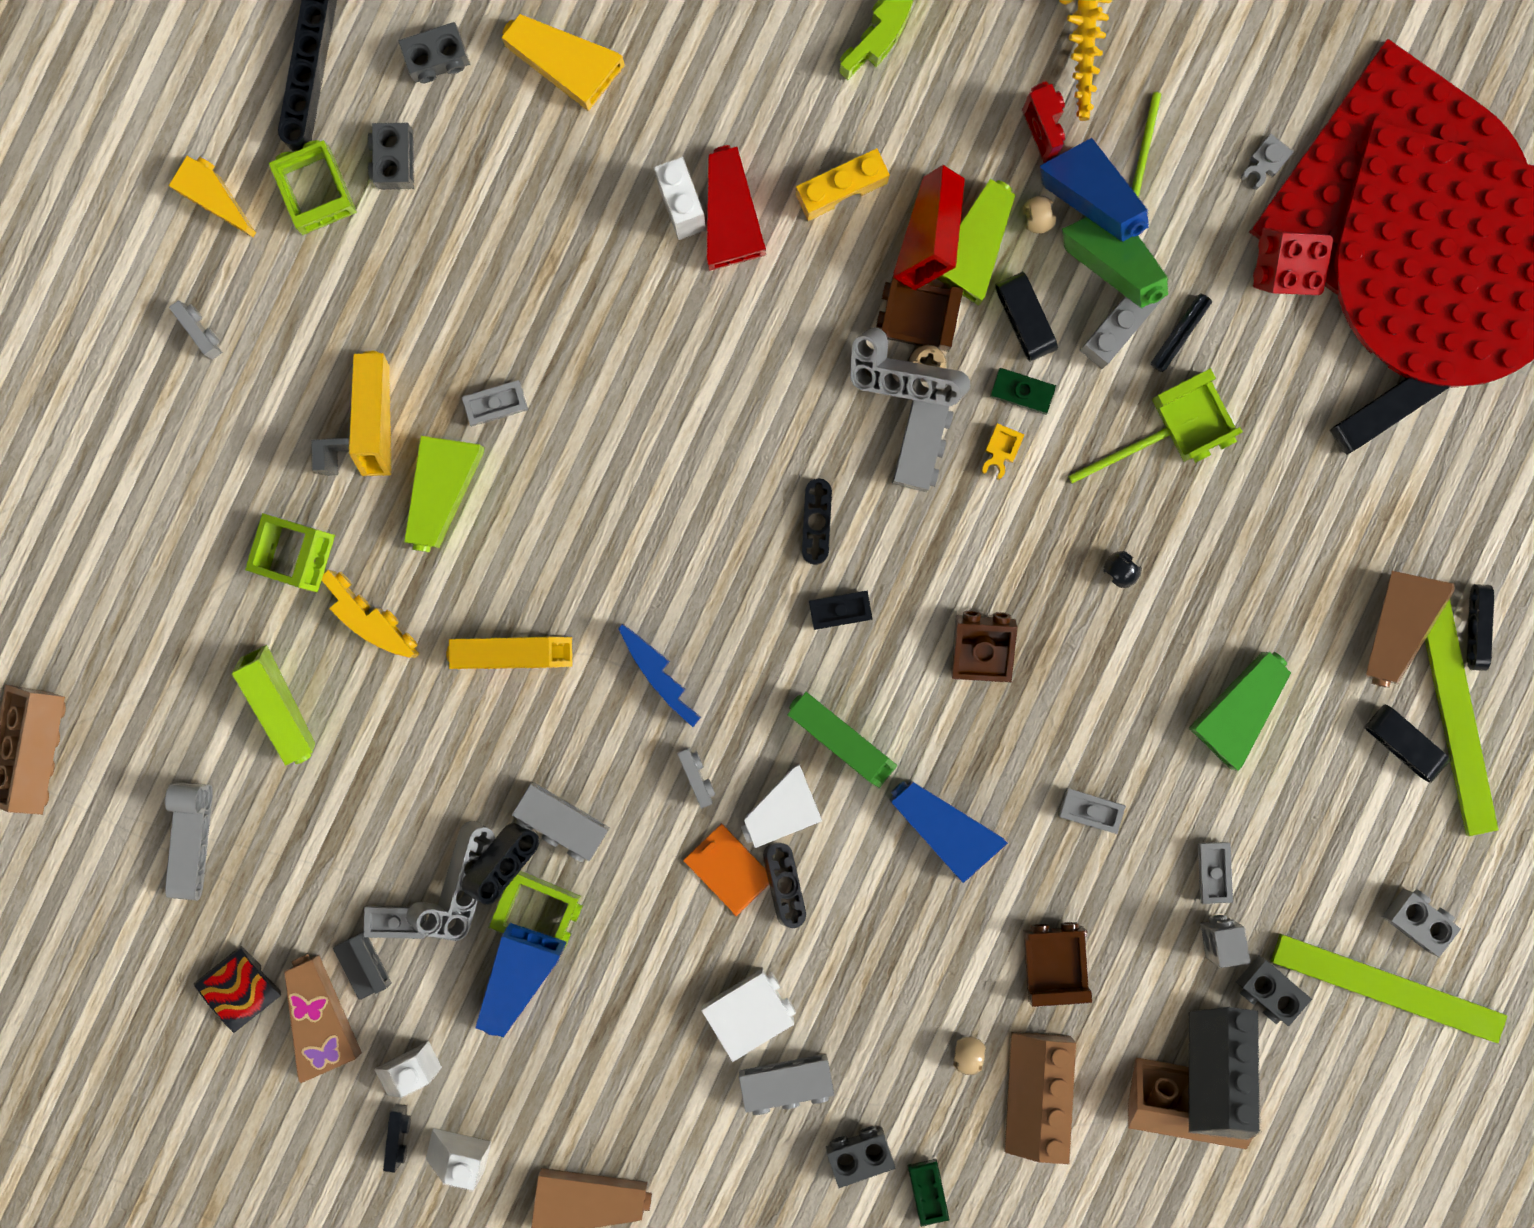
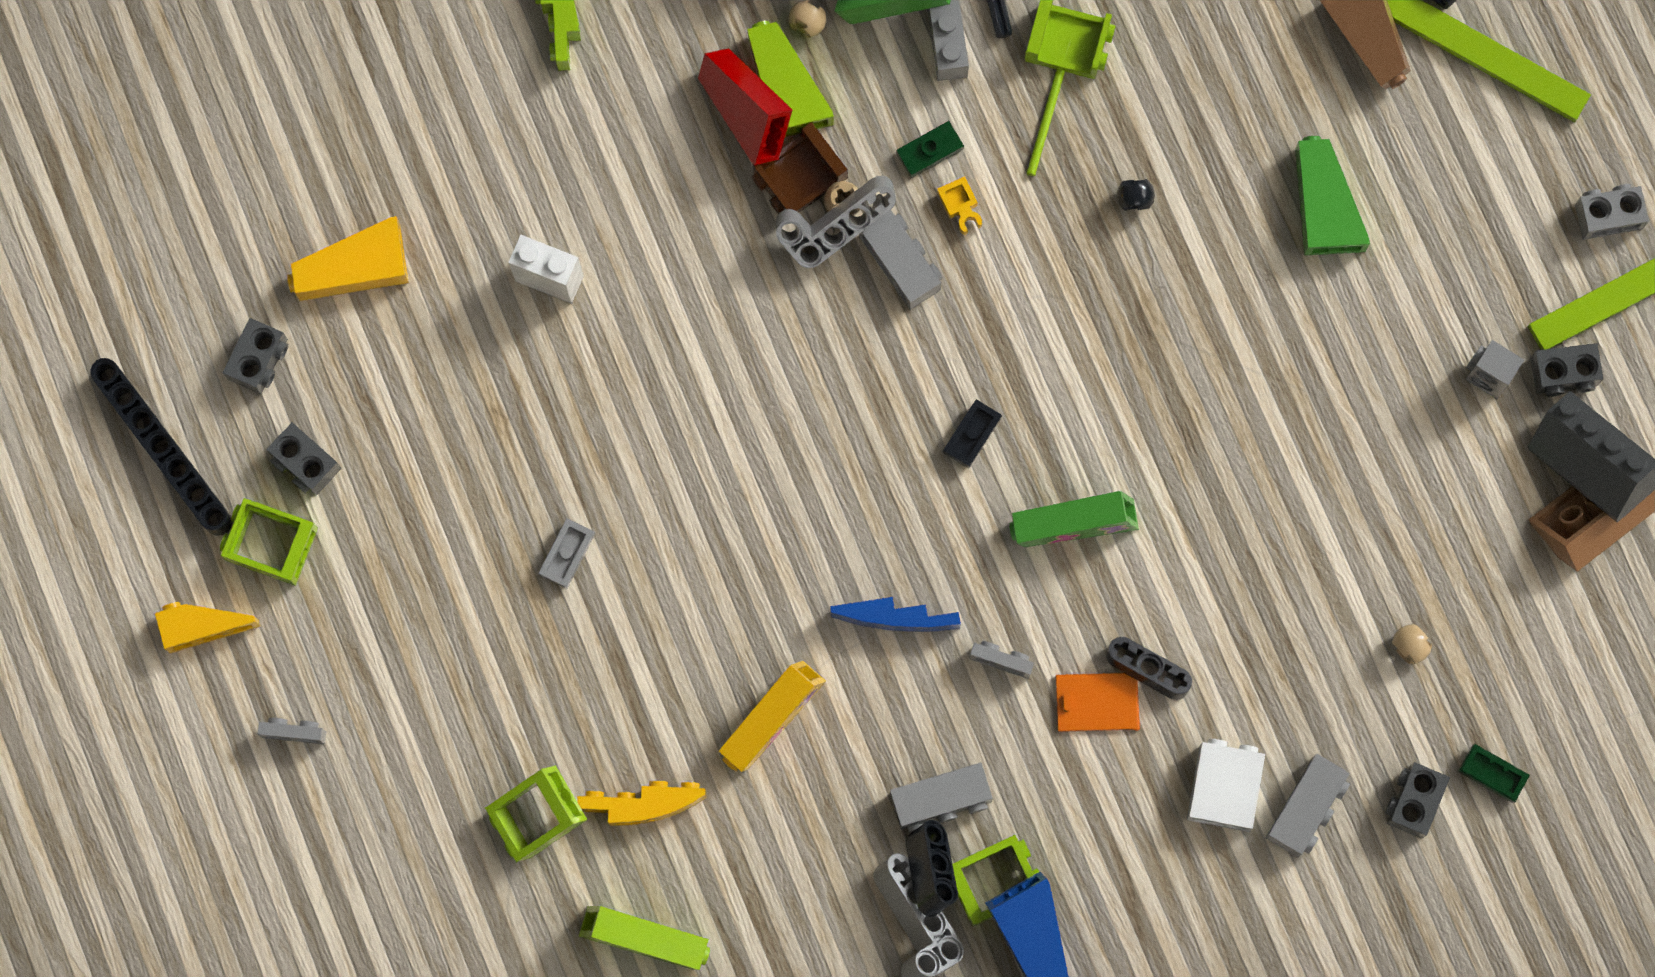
camera: 45 degrees left, 10 degrees down
(326, 456) = (482, 708): dark grey panel -> none
(370, 414) = (487, 654): yellow slope -> none
(439, 486) = (589, 651): lime slope -> none
(732, 219) = (603, 250): red slope -> none
(782, 810) = (1087, 615): white slope -> none
(810, 499) = (864, 382): black beam -> none
(853, 177) = (644, 146): yellow arch -> none
(949, 832) = (1218, 504): blue slope -> none
(984, 647) = (1101, 350): reddish brown plate -> none
(1026, 316) = (875, 96): black beam -> none
(1040, 1097) = (1493, 618): medium nougat slope -> none
(1056, 965) = (1399, 514): reddish brown panel -> none
(1092, 811) = (1302, 382): light grey plate -> none
(1215, 872) = (1435, 332): light grey plate -> none
(1407, 743) = (1463, 103): black beam -> none

